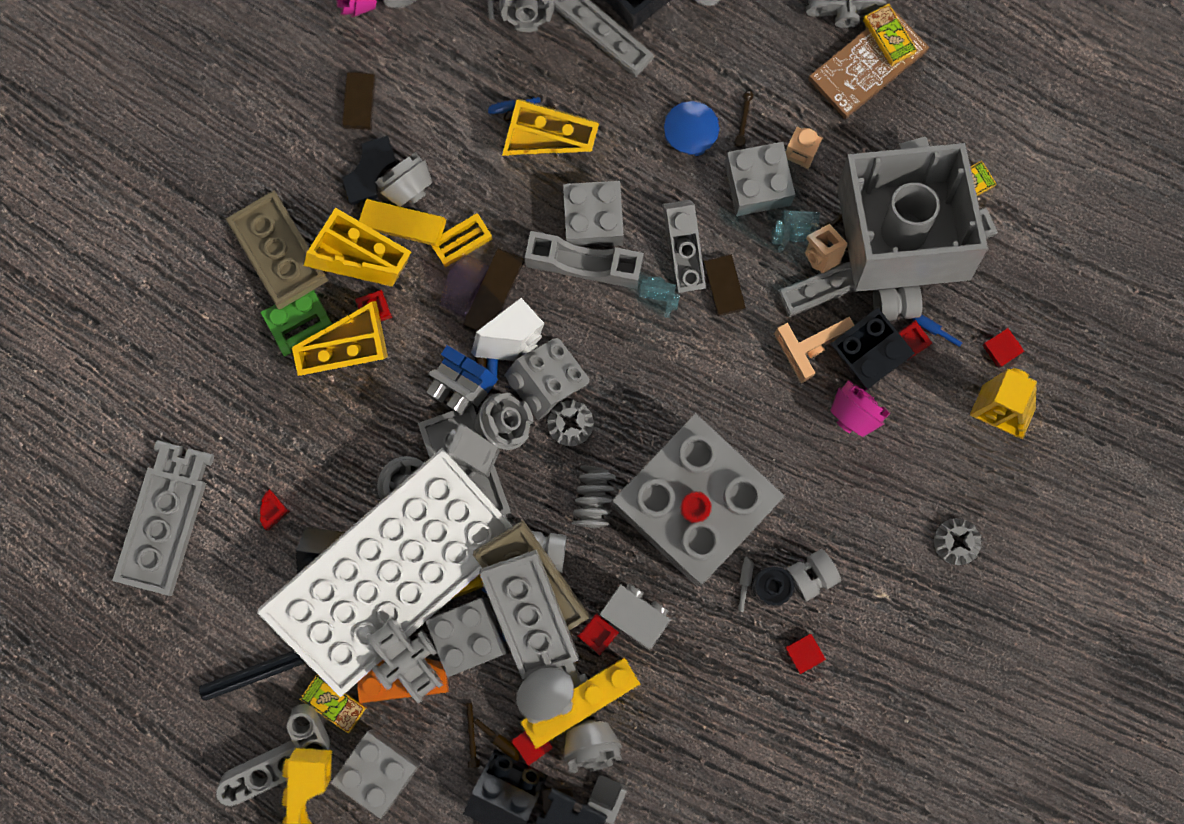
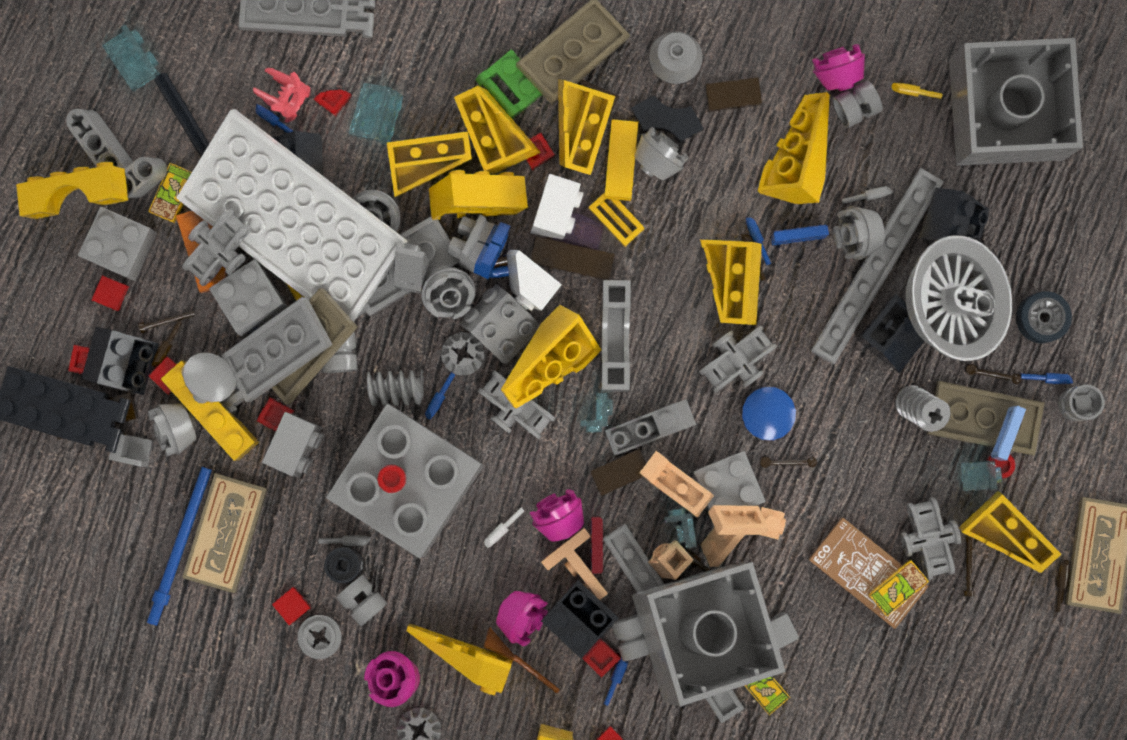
camera: 75 degrees right, 5 degrees up
(174, 722) = (131, 59): none -> clear light blue bracket
(258, 550) = (292, 85): none -> coral piece
(274, 581) = (271, 118): none -> blue piece
(296, 465) = (376, 113): none -> clear light blue bracket
(307, 148) = (675, 57): none -> light grey cone
(356, 421) = (426, 158): none -> yellow wedge
(406, 372) = (478, 194): none -> yellow wedge
(428, 793) = (110, 293): none -> red tile
(438, 293) = (556, 206): none -> white slope
(441, 48) = (800, 162): none -> yellow wedge
(516, 62) = (799, 235): none -> blue tile
(585, 320) = (554, 351): none -> yellow wedge
(593, 214) = (662, 336): light grey brick -> none
(612, 457) = (438, 398): none -> blue piece
(628, 381) = (525, 415): none -> light grey axle
(630, 145) = (744, 354): none -> light grey axle
(714, 712) = (225, 533): none -> tile
(751, 223) = (676, 484): none -> light nougat bracket
(760, 352) = (558, 516): none -> dark pink cone
(762, 417) = (501, 529): none -> white piece
(771, 794) = (162, 596): none -> blue bar
(798, 317) = (596, 545): none -> dark red tile
(805, 178) = (730, 526): none -> light nougat bracket
(856, 627) = (307, 639): none -> light grey gear
(884, 442) = (496, 645): none -> dark orange piece
(902, 462) = (475, 663): none -> yellow wedge
(902, 557) = (392, 678): none -> dark pink cone

